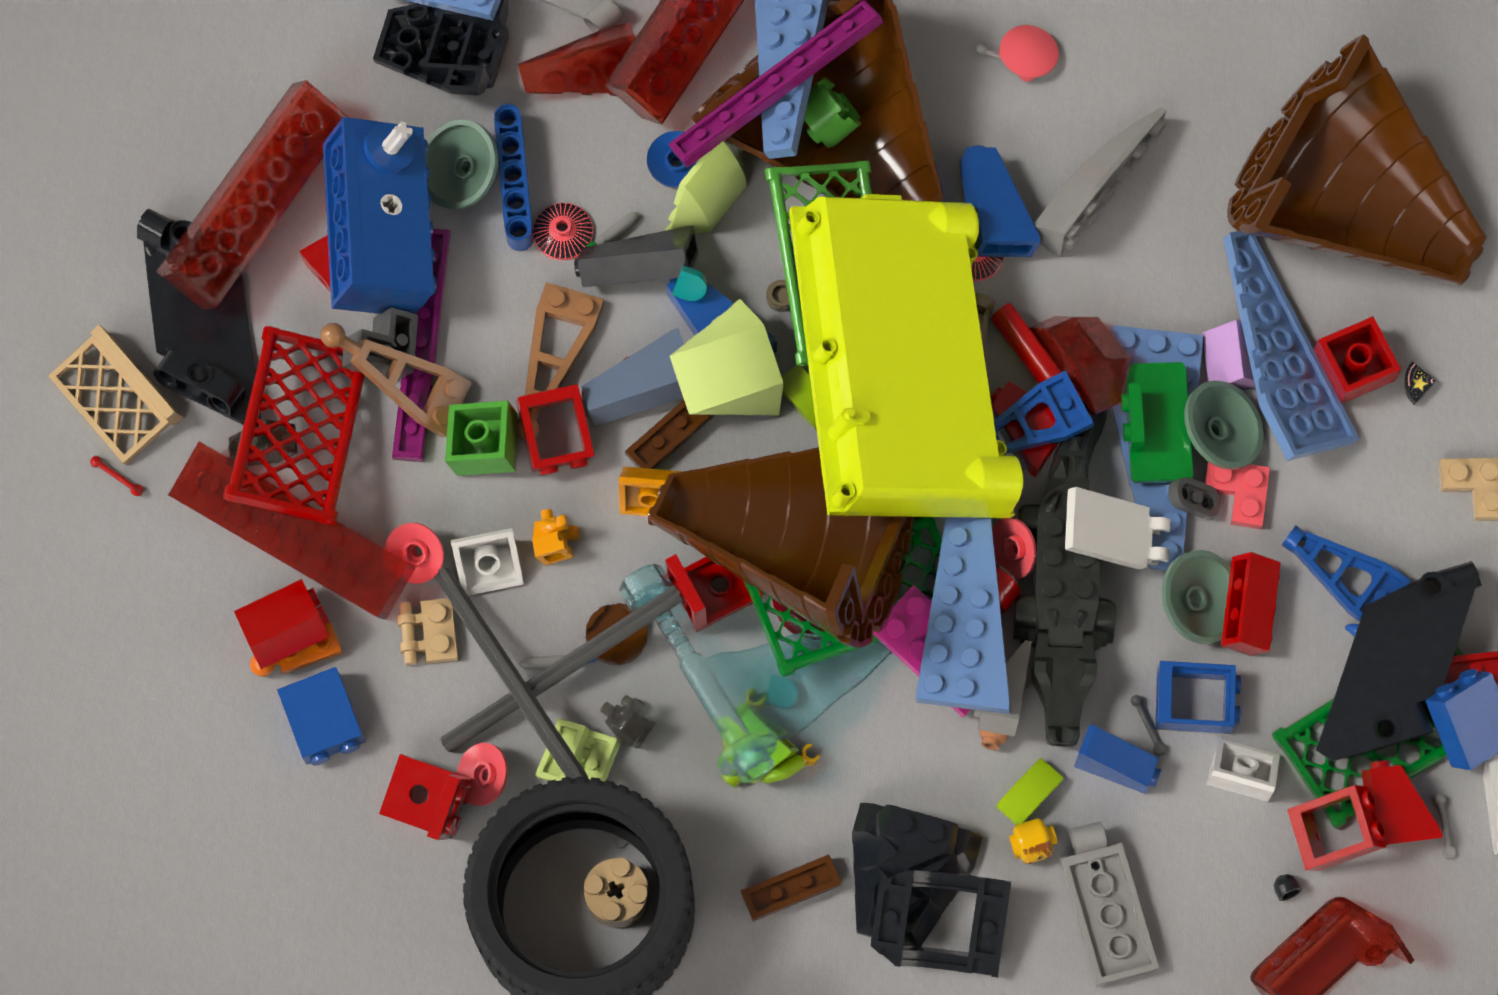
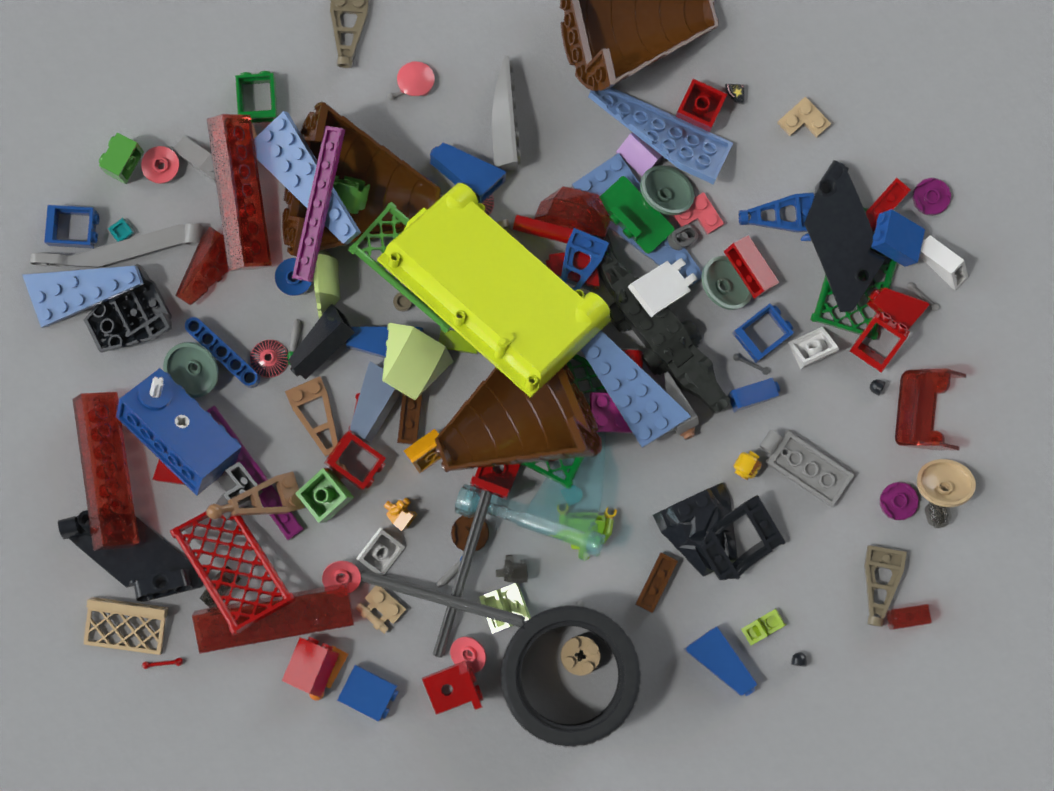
camera: 45 degrees left, 10 degrees up
(690, 284) = (359, 336): teal tile -> none
(1014, 547) = (622, 333): coral dish -> none
(1029, 792) = (725, 443): lime slope -> none

